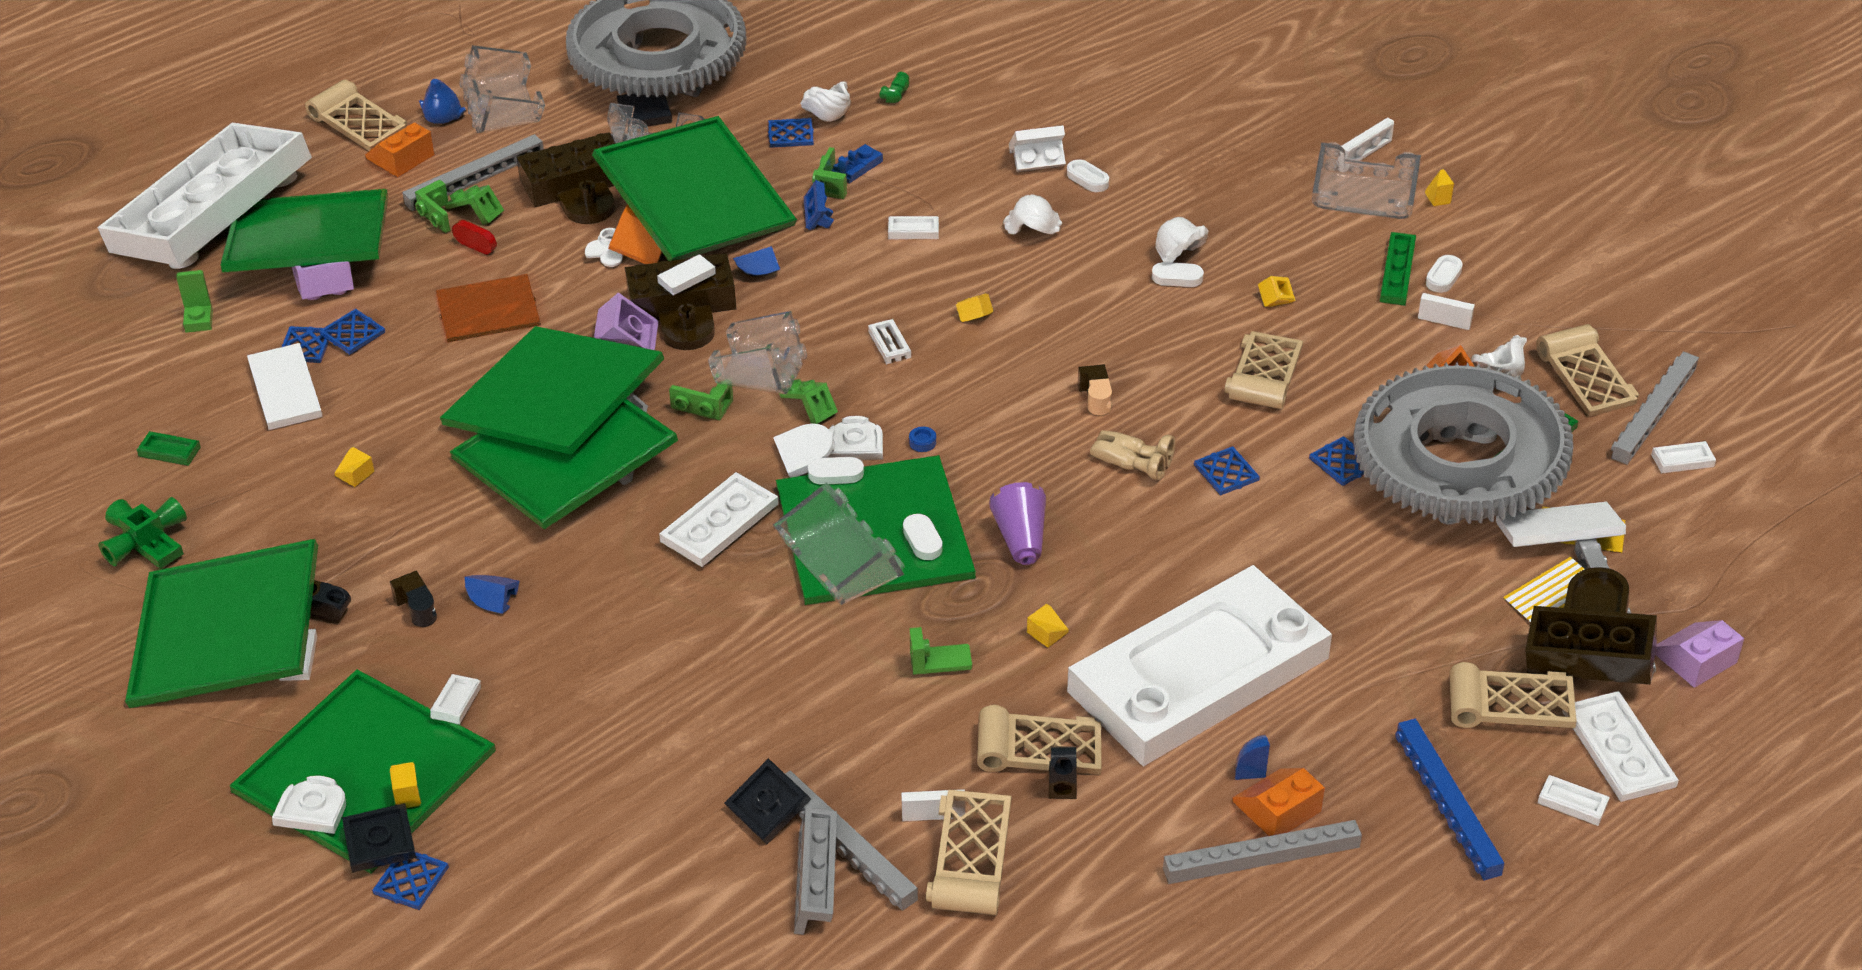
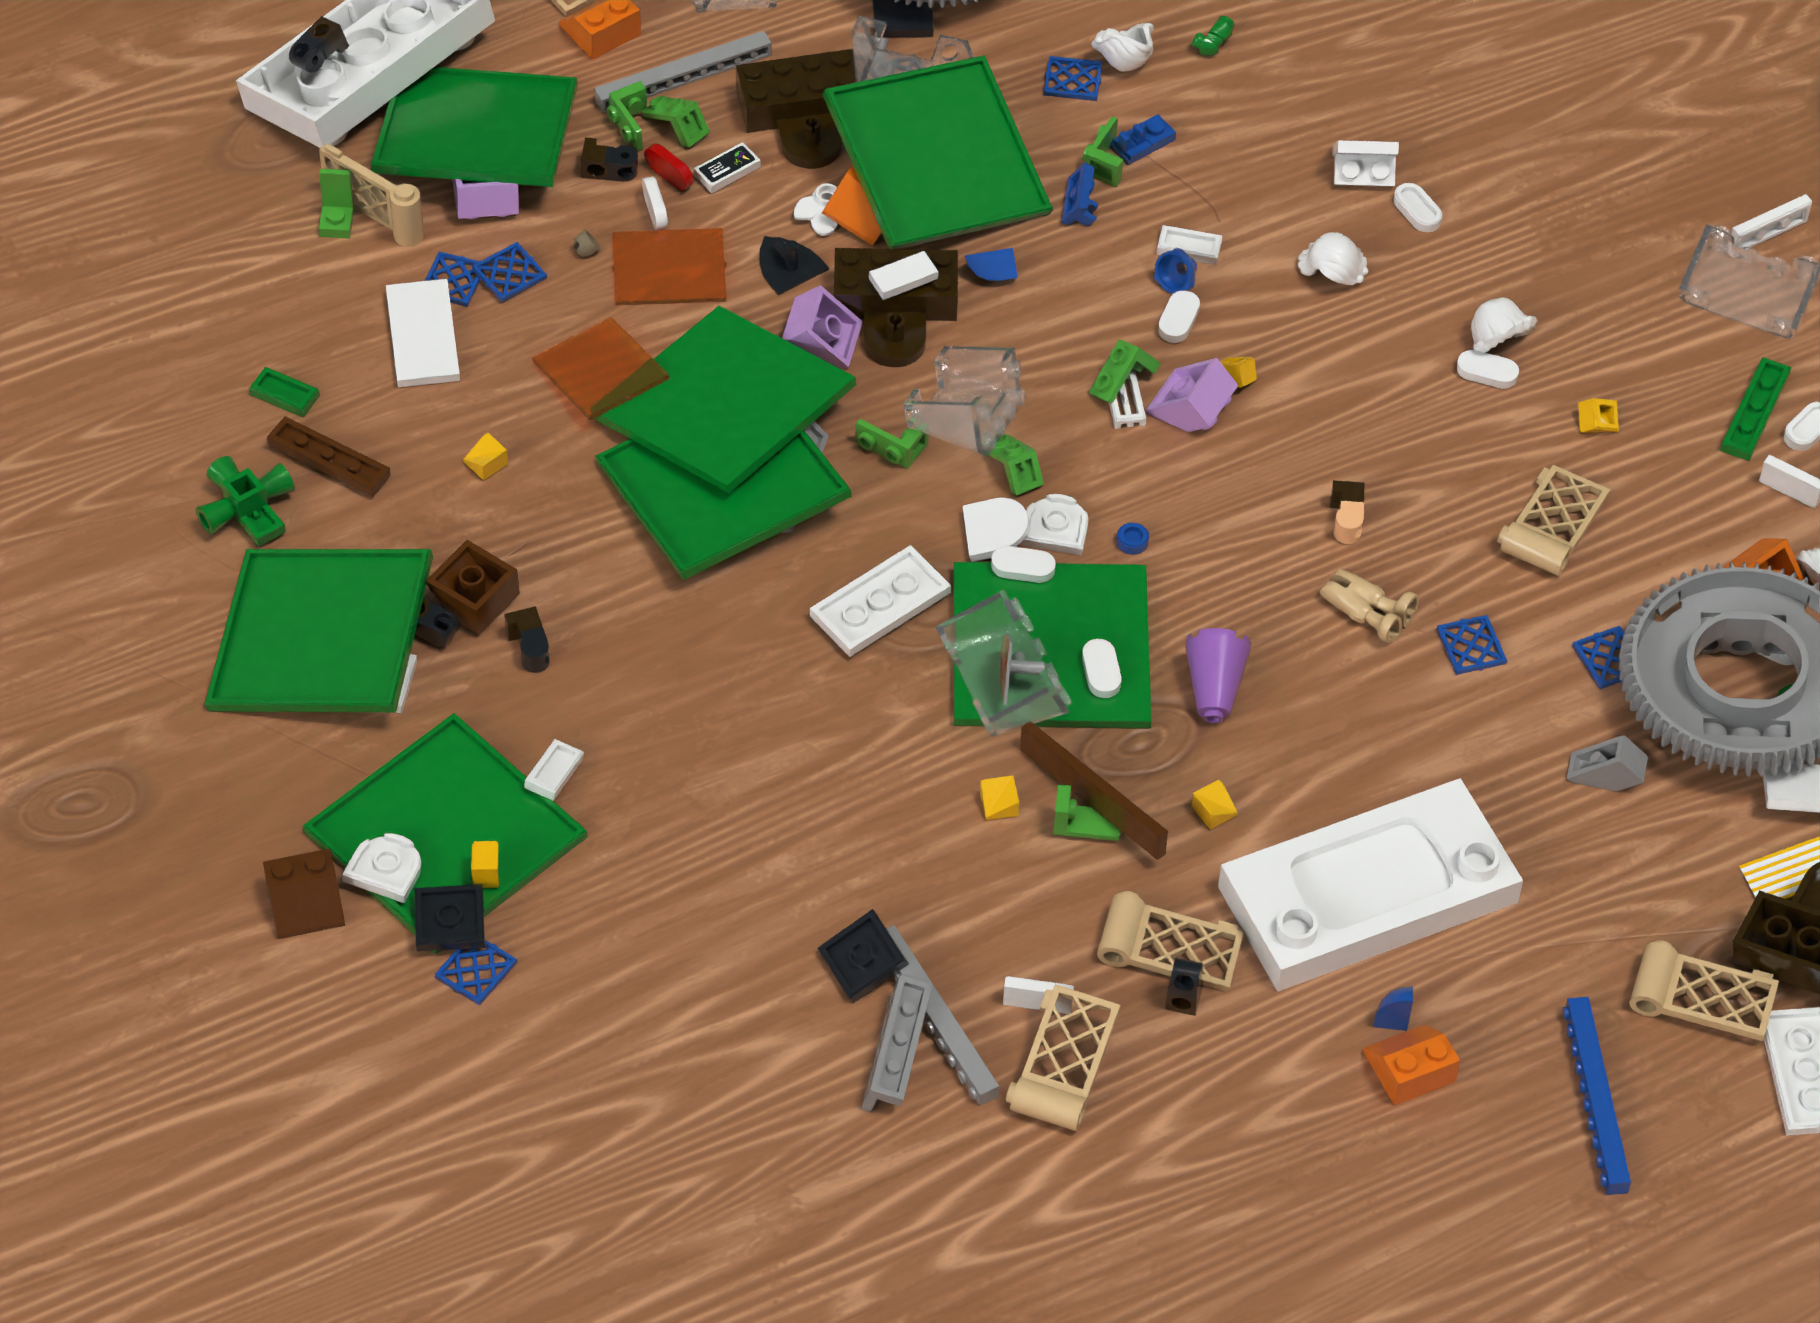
camera: 10 degrees right, 10 degrees up
(163, 187) = (317, 45): none -> leg
(214, 488) = (328, 456): none -> reddish brown plate
(238, 841) = (304, 893): none -> reddish brown slope
(251, 292) = (400, 204): none -> tan piece
(359, 563) = (474, 586): none -> reddish brown slope
(413, 301) = (585, 244): none -> dark tan hinge
(423, 241) = (608, 162): none -> leg
(442, 386) = (600, 368): none -> clear orange piece
(467, 263) = (655, 203): none -> white tile
(491, 591) = (613, 644): blue brick -> none
(523, 232) = (727, 167): none -> tile
(586, 290) = (788, 263): none -> black shield
(847, 541) = (1016, 665): none -> light grey shield
(859, 652) = (999, 797): none -> yellow slope
(881, 310) = (1118, 367): none -> bright green bracket
(902, 244) = (1171, 271): none -> blue piece
(918, 277) = (1179, 316): none -> white tile
(942, 630) = (1094, 790): none -> reddish brown tile
(946, 327) = (1194, 395): none -> lavender slope
(1261, 851) = (1376, 1116): light grey piece -> none
(1371, 537) = (1608, 765): none -> light grey slope
(1573, 800) = (1733, 1124): white tile -> none

